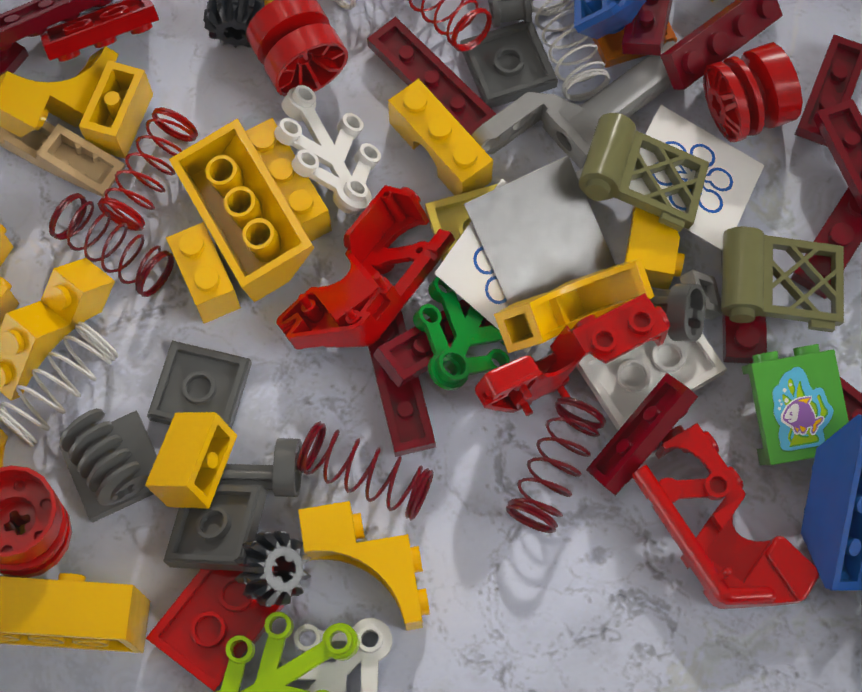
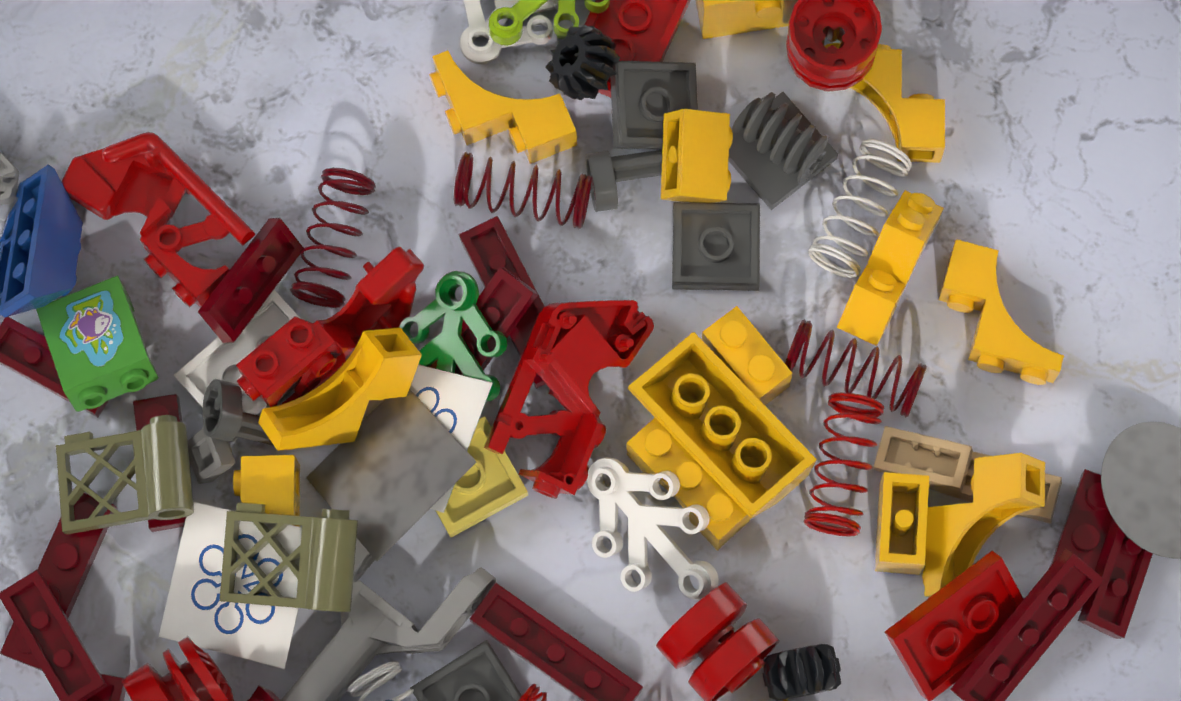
camera: 170 degrees right, 5 degrees up
(426, 122) = (528, 569): yellow arch -> none

